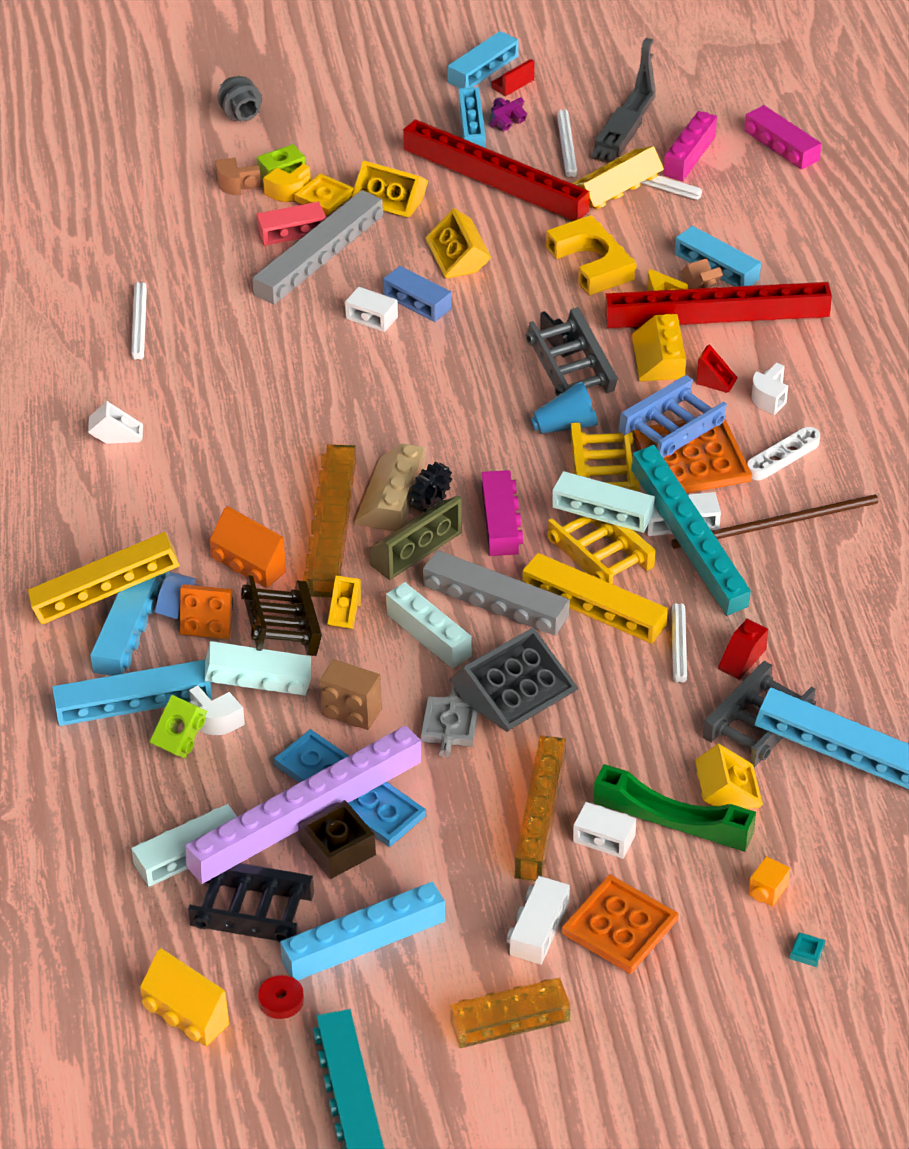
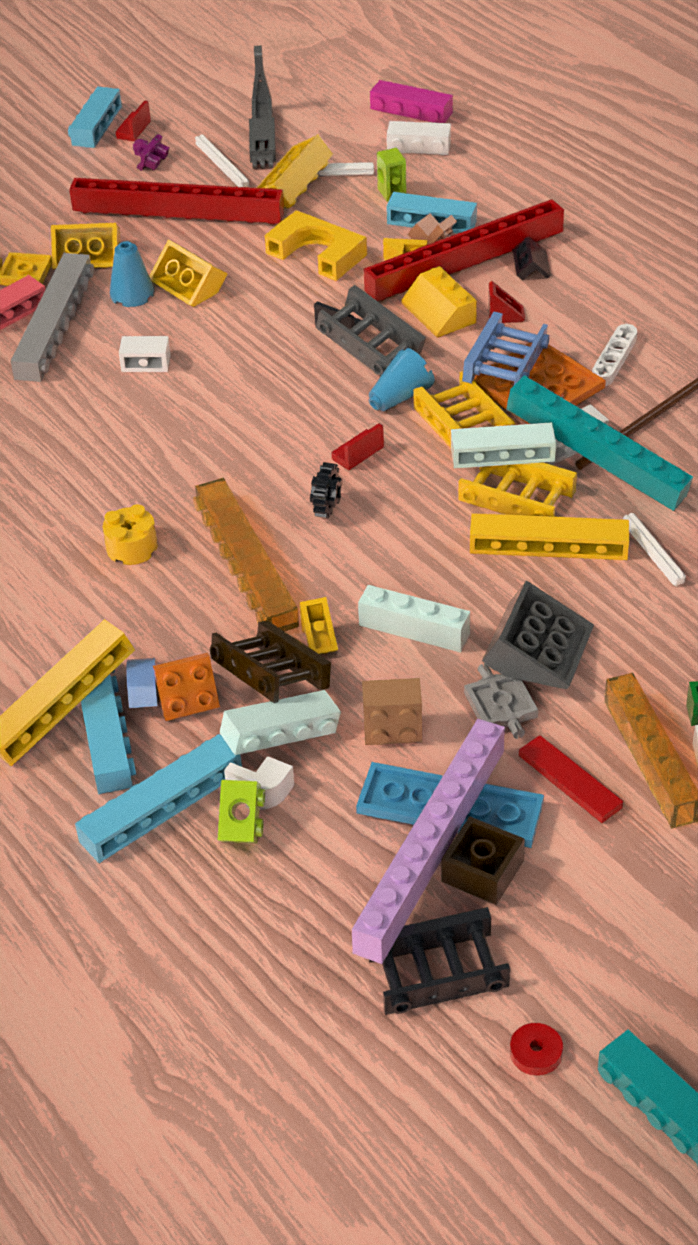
camera: 25 degrees left, 0 degrees up
(166, 853) = (326, 932): light aqua brick -> none
(184, 998) = (448, 1094): yellow slope -> none
(248, 547) = (184, 608): orange slope -> none
(250, 468) = (130, 535): none -> yellow brick
(363, 931) = (573, 944): medium azure brick -> none
(388, 492) = (282, 506): tan slope -> none
(403, 233) = (129, 277): none -> dark azure cone
(417, 293) = (180, 325): medium blue brick -> none
(417, 538) = (342, 541): olive slope -> none
(461, 806) = (571, 779): none -> red tile
(471, 116) = (121, 161): medium azure brick -> none
(494, 459) = (359, 447): none -> red panel
(496, 592) = (453, 565): light grey brick -> none
(501, 514) = (403, 492): dark pink brick -> none
(690, 146) = (337, 129): dark pink brick -> none
(703, 206) = (391, 172): none -> lime brick
(762, 176) = (419, 137): none -> white brick
(768, 389) = (561, 307): white brick -> none
(778, 333) = (530, 257): none -> black panel

